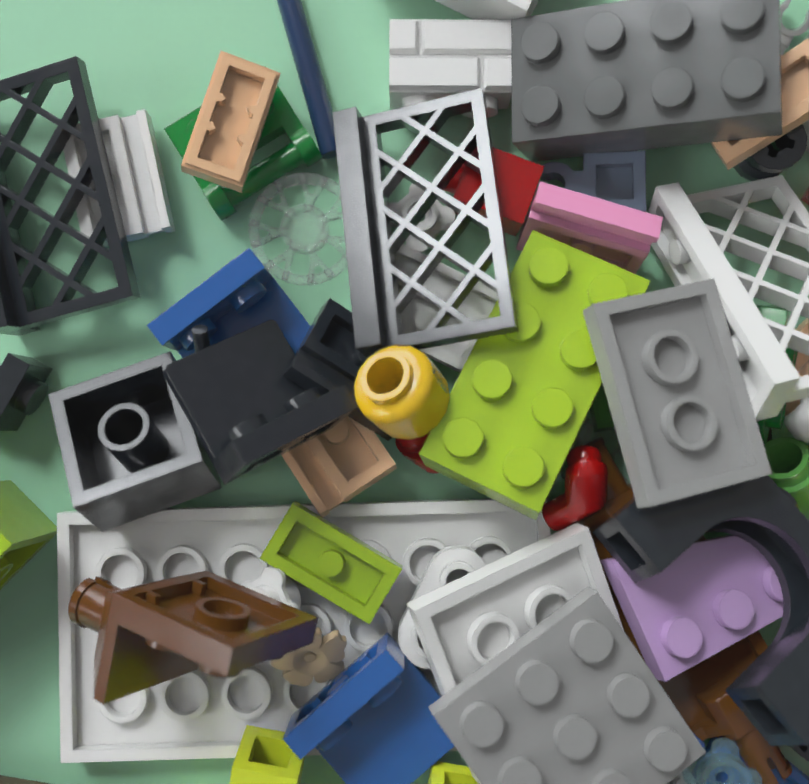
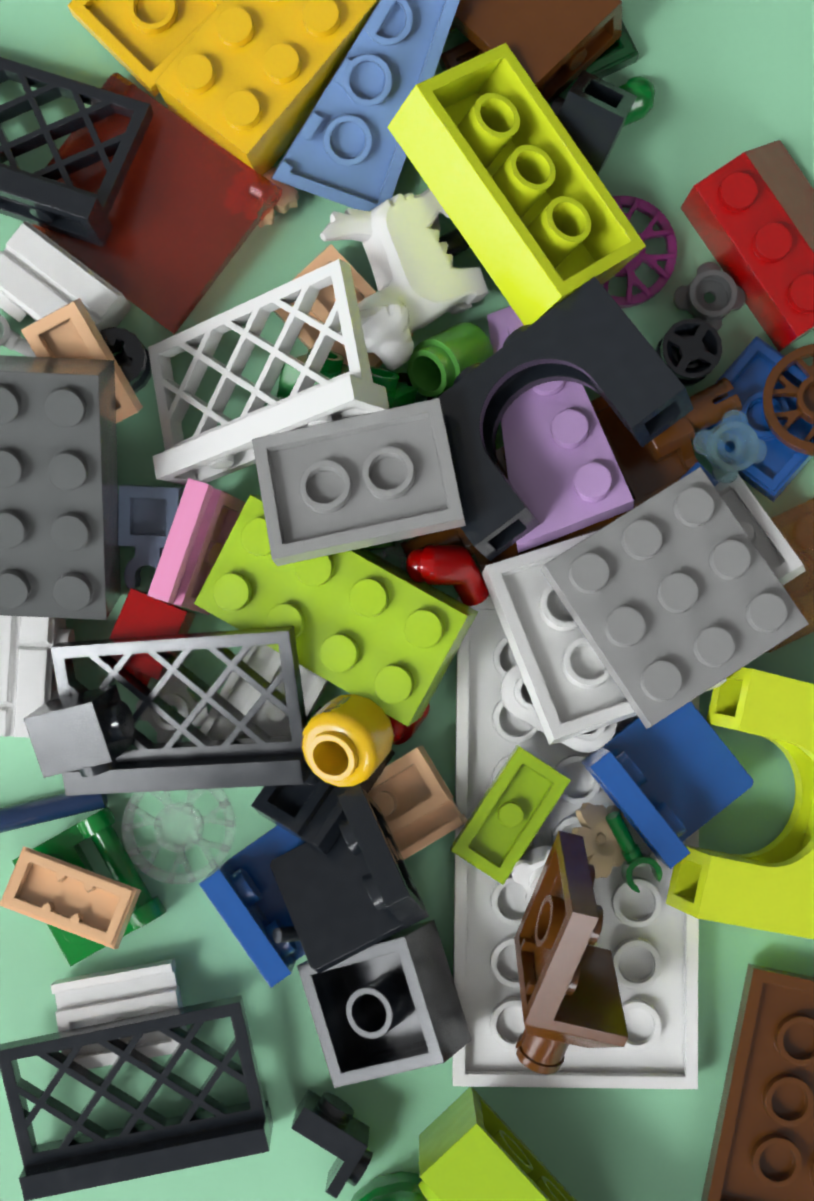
camera: 85 degrees left, 0 degrees up
(296, 689) = (630, 851): none -> green hand
(397, 120) = (81, 732): none -> brick

